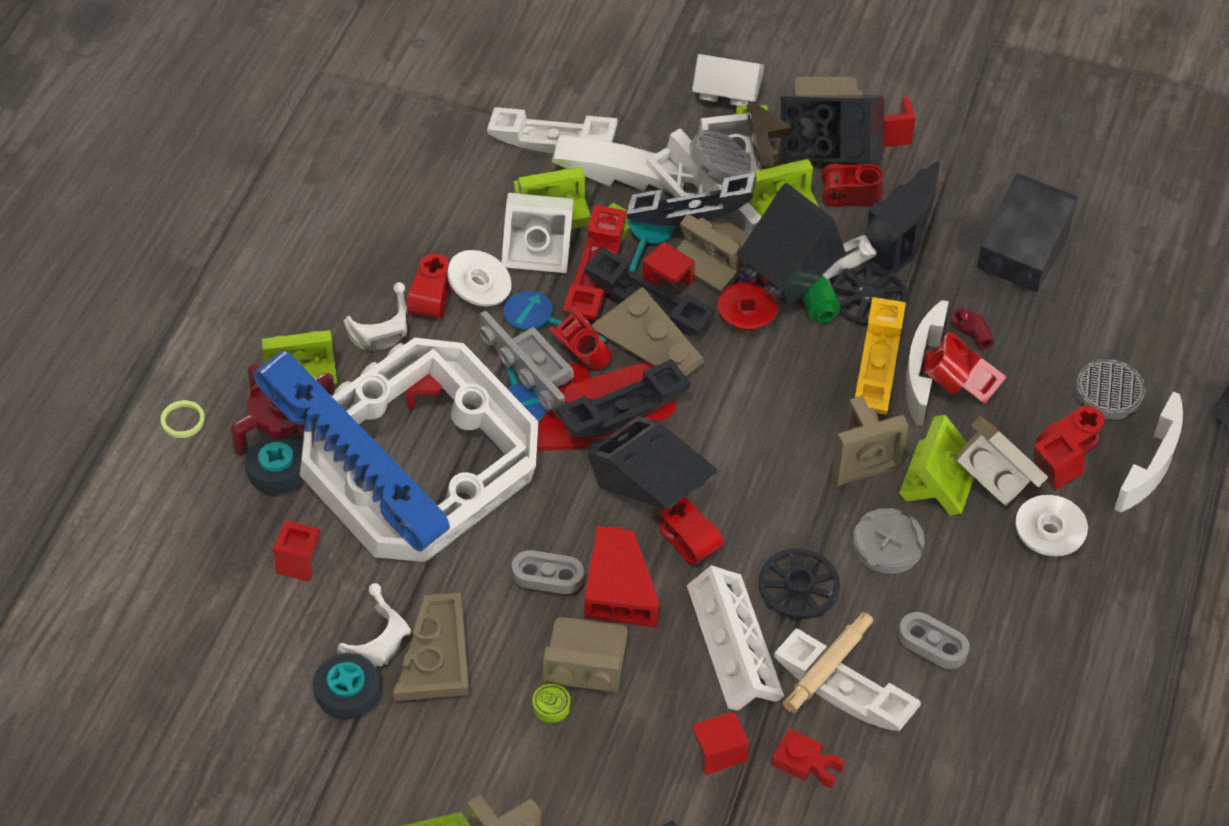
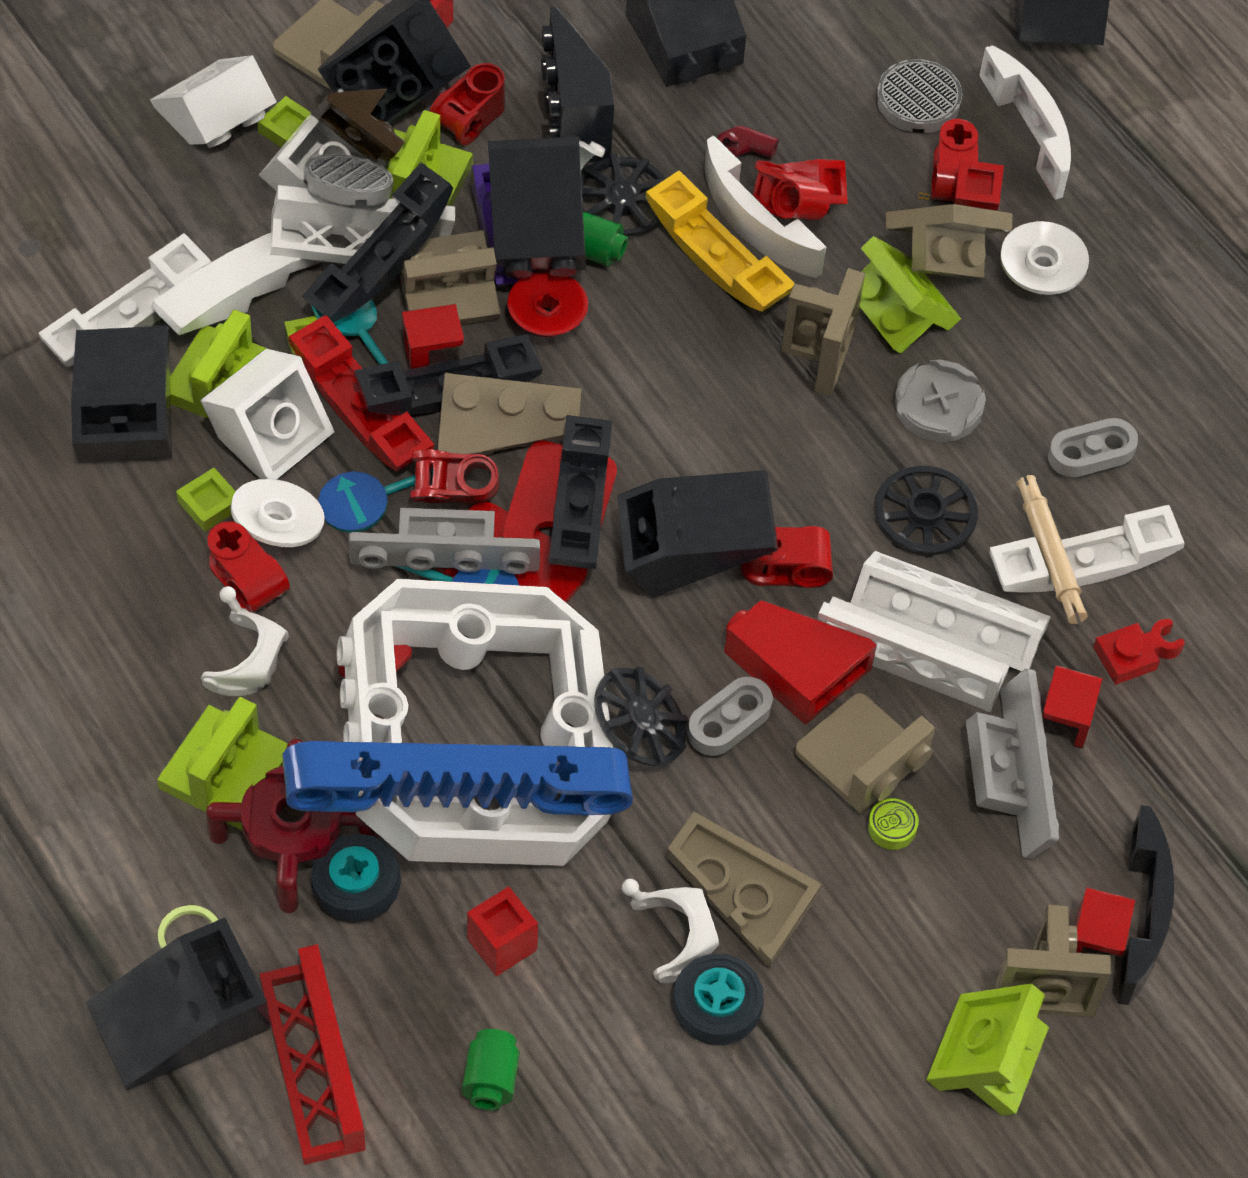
camera: 55 degrees left, 5 degrees up
(130, 438) = (180, 1005): none -> black slope
(167, 507) = (332, 1052): none -> red fence
(205, 603) = (491, 1069): none -> green brick
(464, 241) = (207, 499): none -> lime tile
(485, 162) = (121, 394): none -> black slope
(501, 524) = (640, 716): none -> black wheel
(644, 734) = (1013, 764): none -> light grey bracket
(684, 639) = (921, 655): none -> white fence

